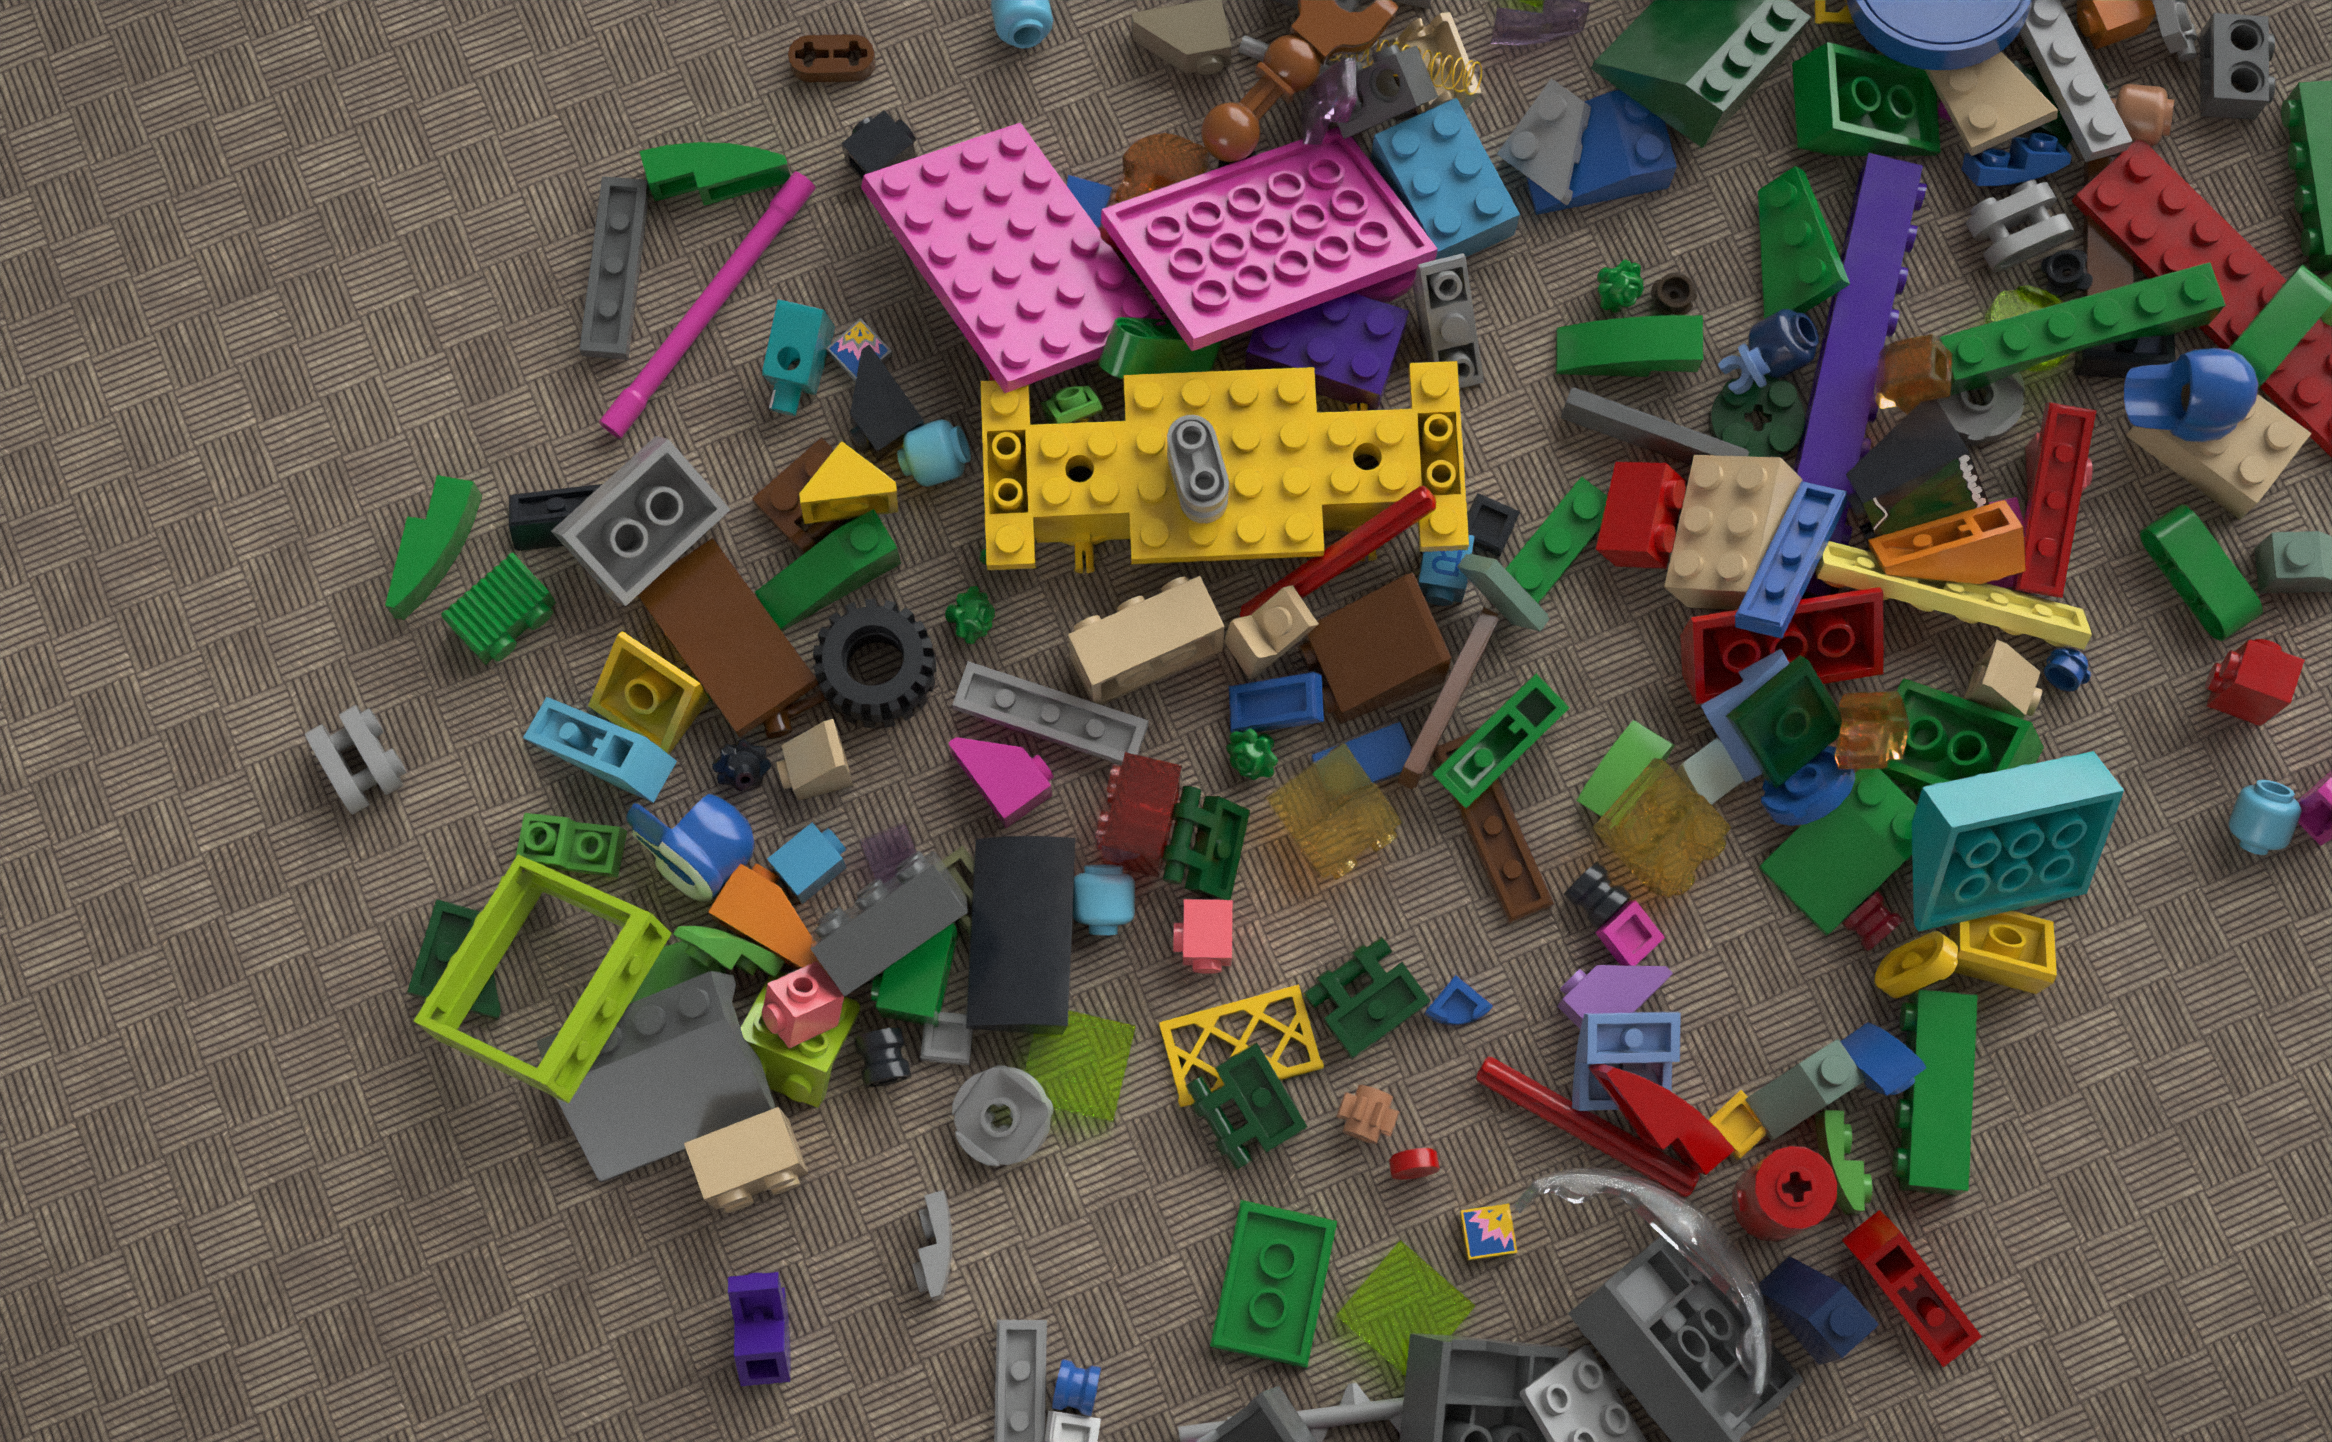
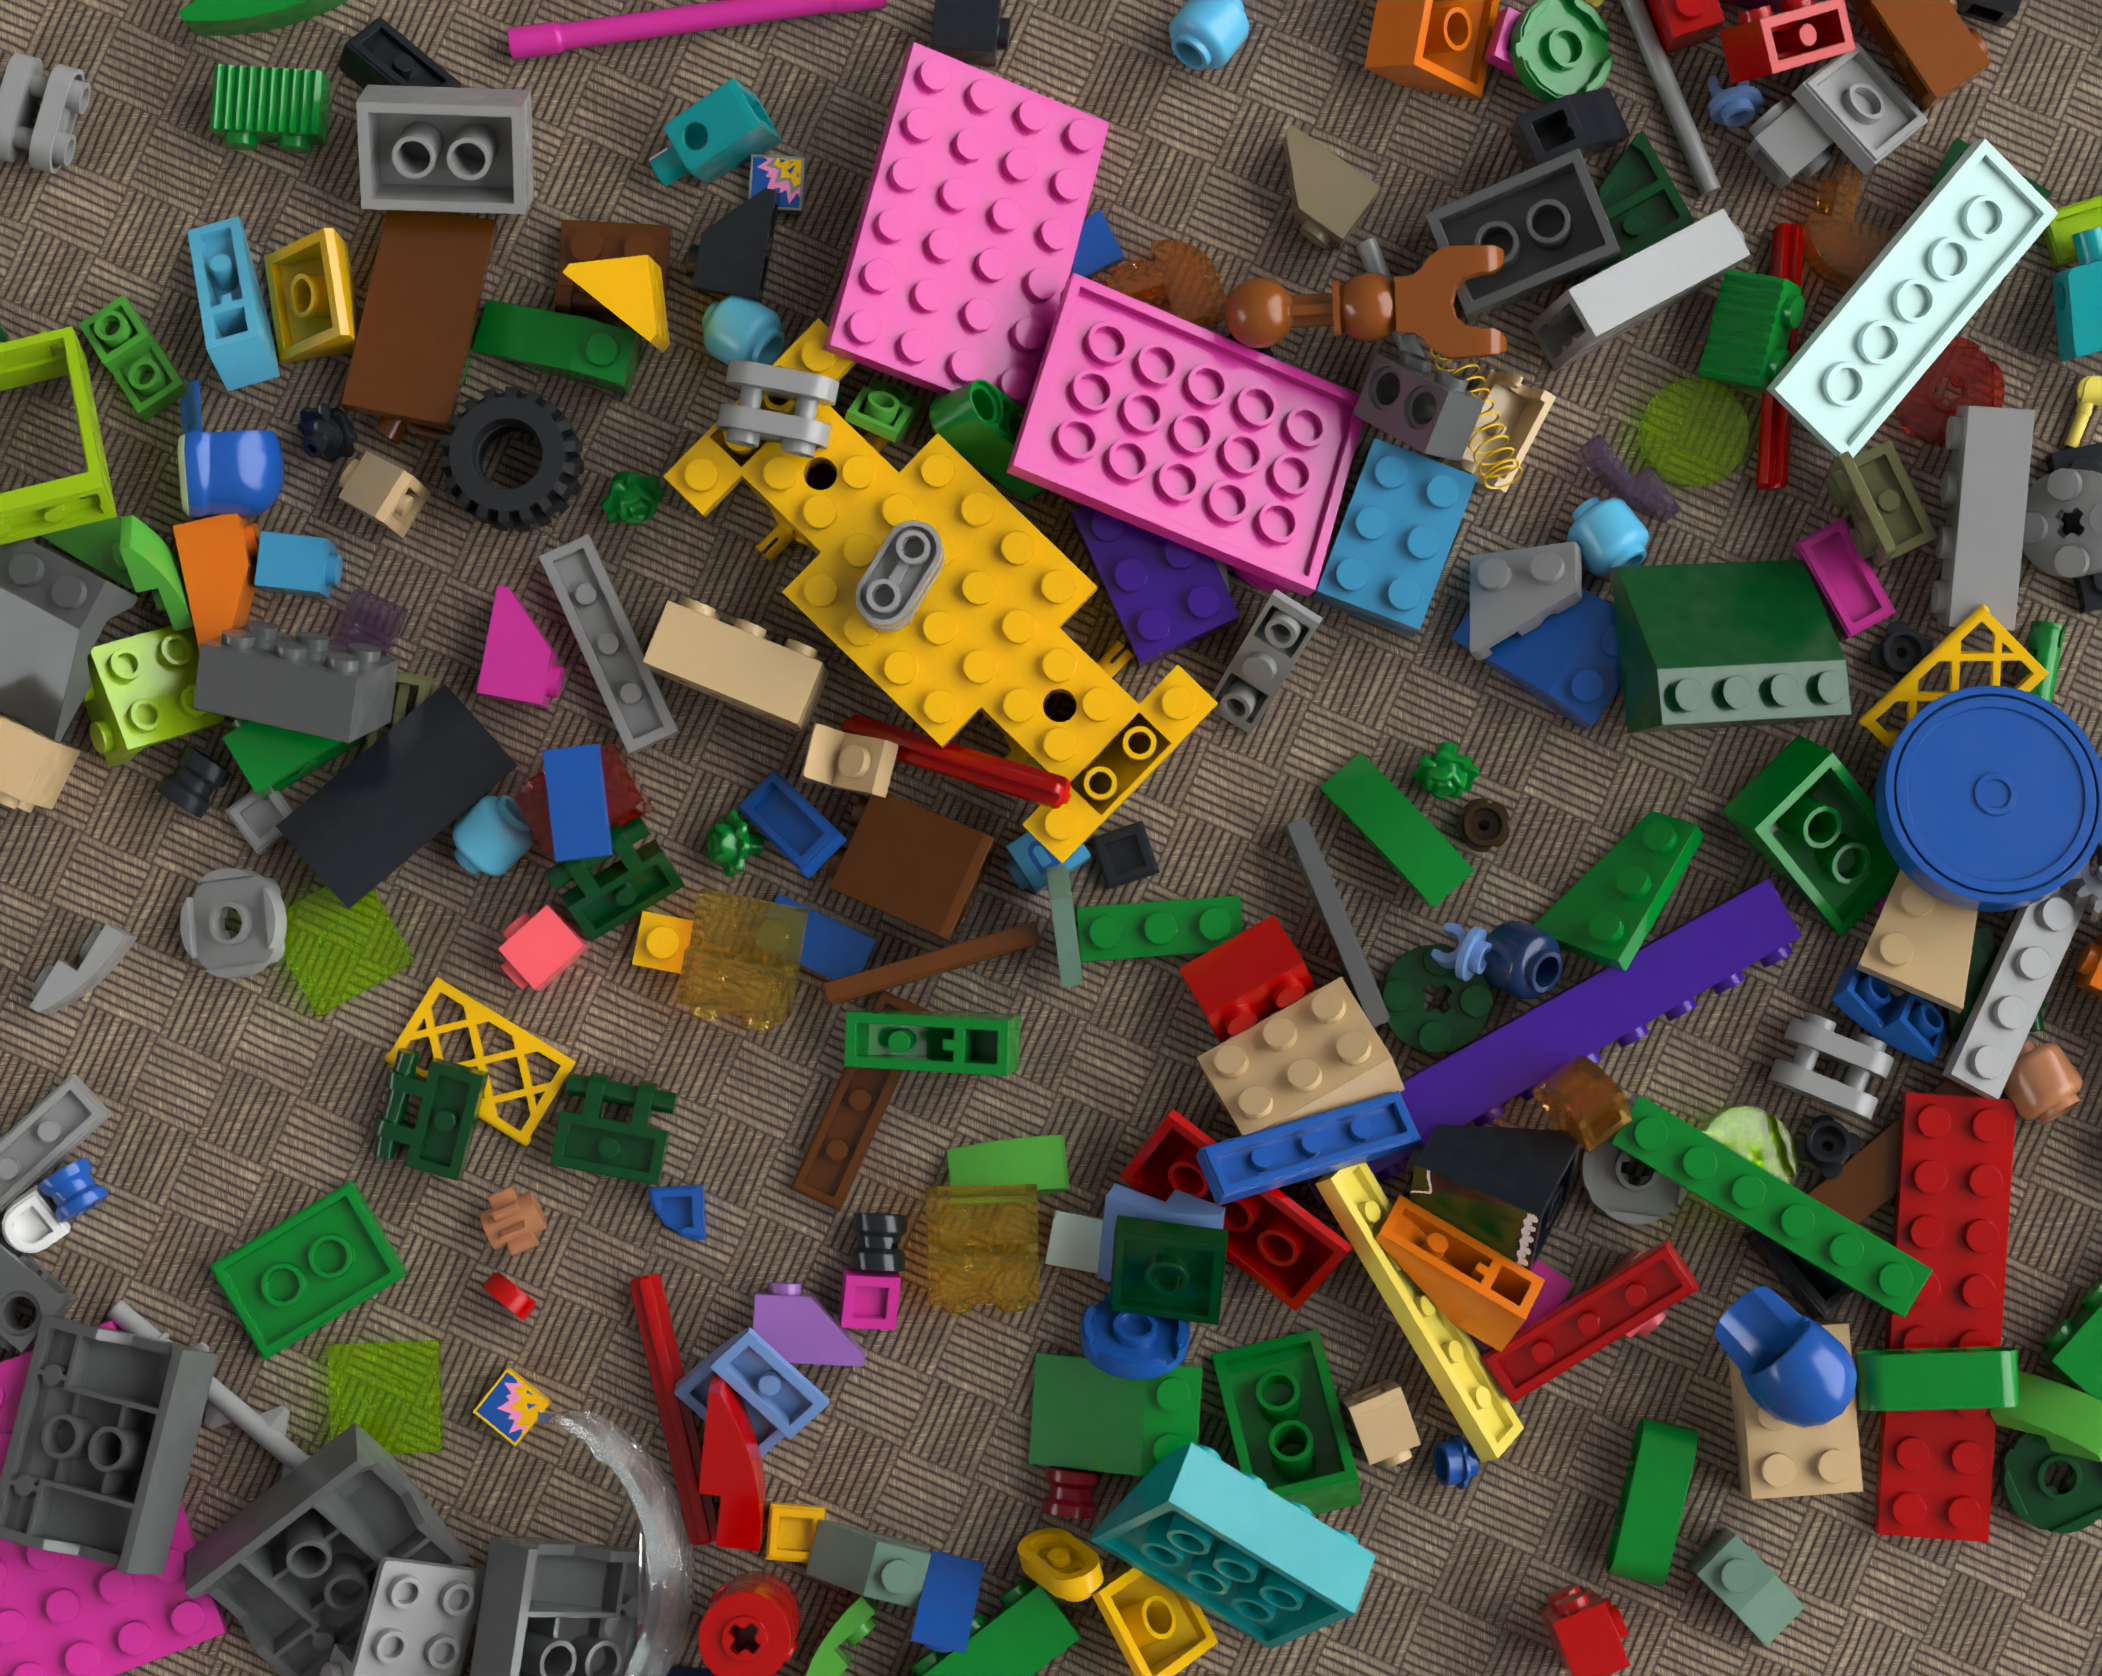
camera: 50 degrees right, 10 degrees up
(802, 1005) = (158, 677): coral brick -> none
(1011, 473) = (797, 432): none -> light grey brick
(1145, 805) = (577, 803): none -> blue tile
(1275, 857) = (662, 942): none -> yellow plate
(1329, 100) = (1362, 372): clear purple slope -> none
(1565, 60) = (1608, 535): none -> medium azure head
(1871, 729) = (1228, 1347): clear orange brick -> none

